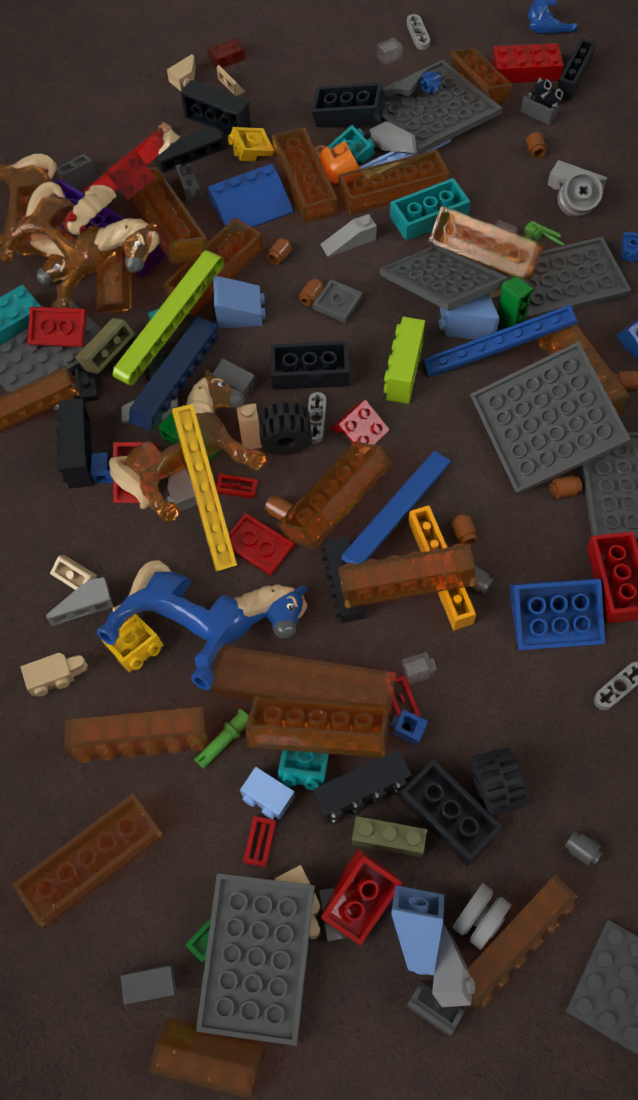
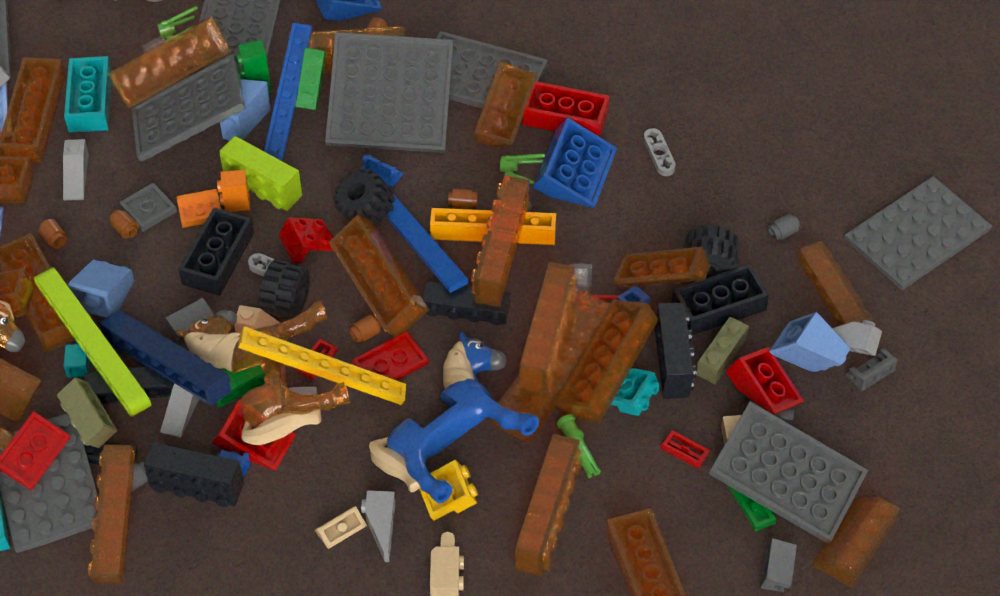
camera: 70 degrees left, 10 degrees down
(267, 794) = (646, 426): light blue brick -> none
(317, 655) = (548, 329): none -> clear orange brick
(354, 333) = (196, 207): none -> orange bracket
(376, 349) = (234, 191): none -> orange brick
(414, 448) = (364, 195): none -> black wheel
(449, 740) = (662, 267): none -> clear orange slope
(465, 451) = (387, 173): none -> blue hinge
(483, 917) = (815, 298): light grey wheel -> none
(528, 350) = (311, 79): none -> green brick
(529, 555) = (510, 163): none -> bright green plant
(565, 486) = (458, 113): dark orange brick -> none
(586, 517) = (504, 106): none -> clear orange slope

